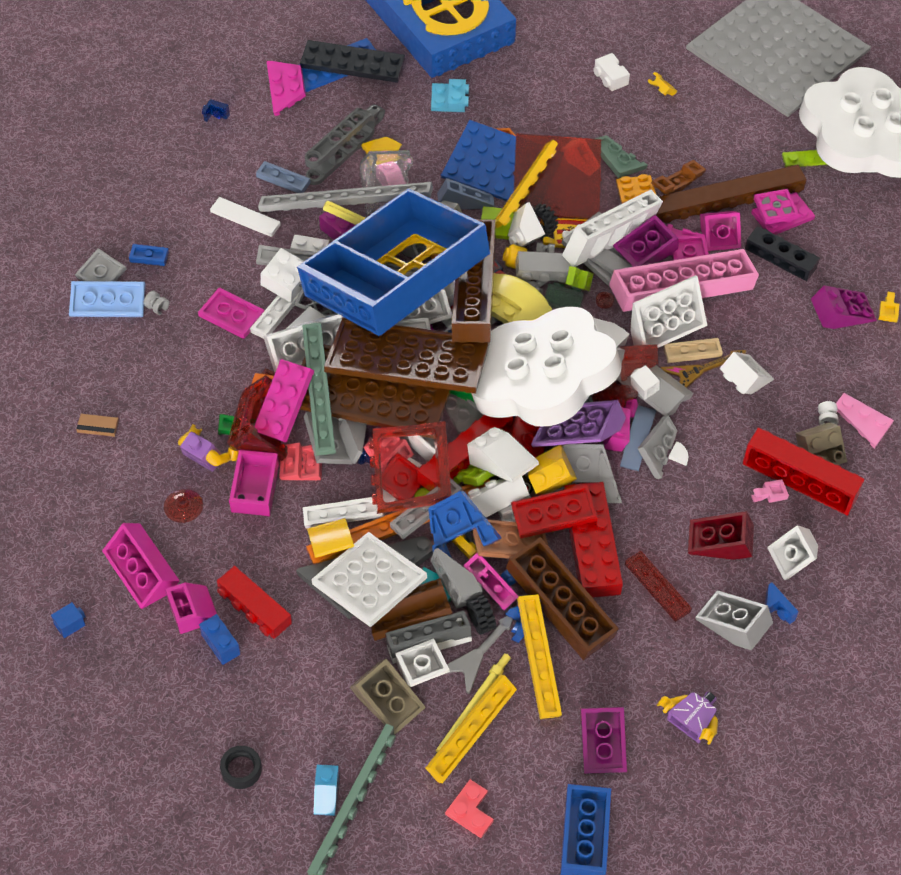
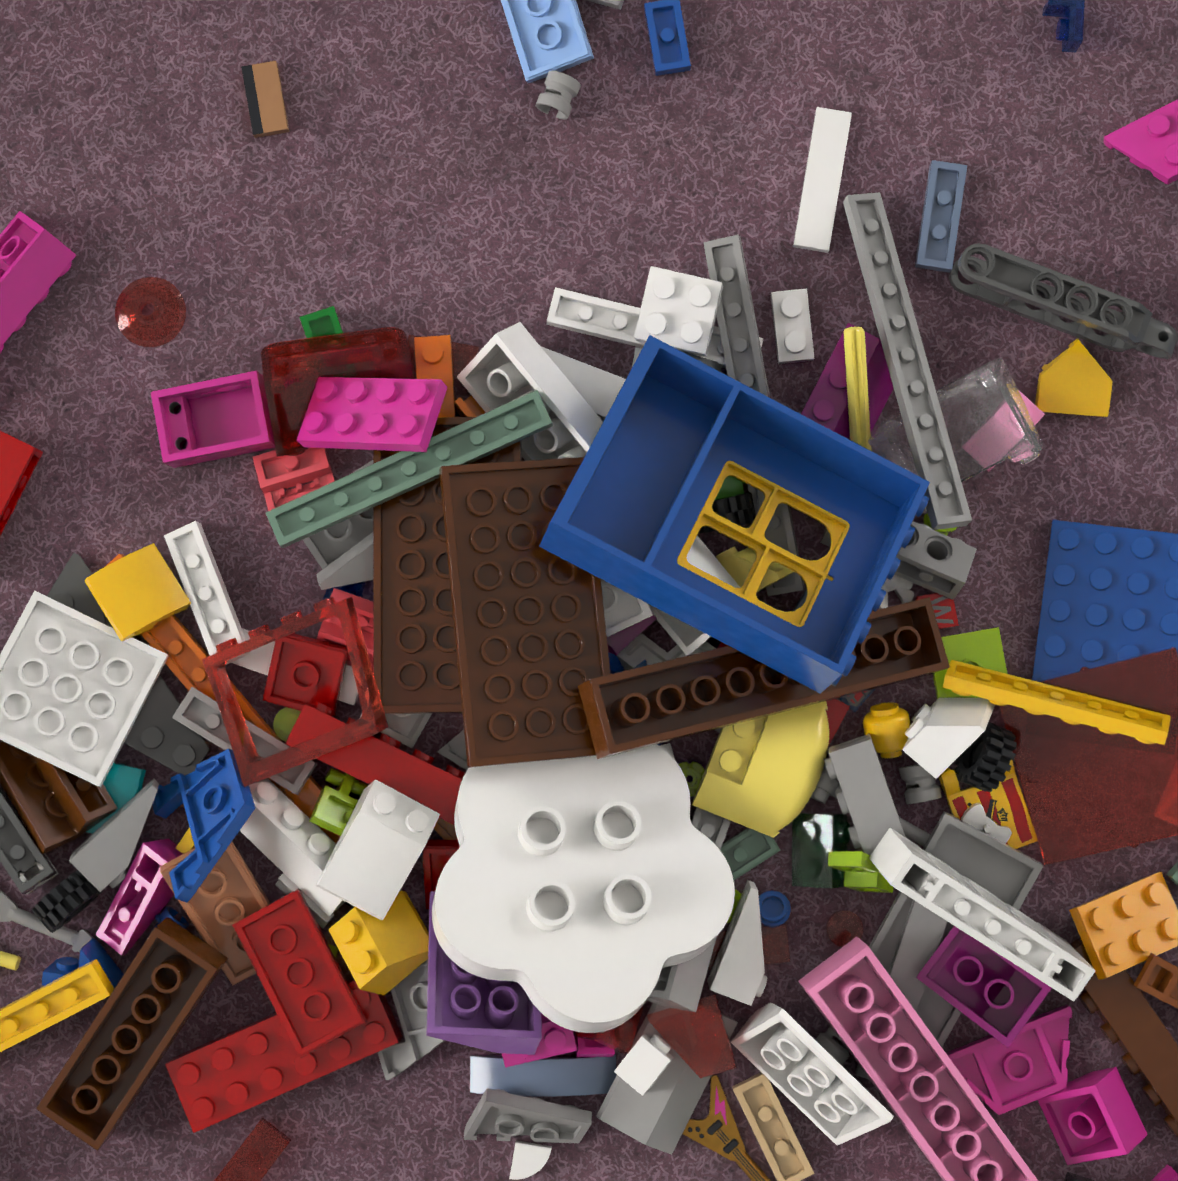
camera: 75 degrees right, 30 degrees up
(204, 451) = (252, 299): torso -> none
(230, 312) = (581, 239): dark pink plate -> none
(464, 195) = (1006, 585): sand blue slope -> none

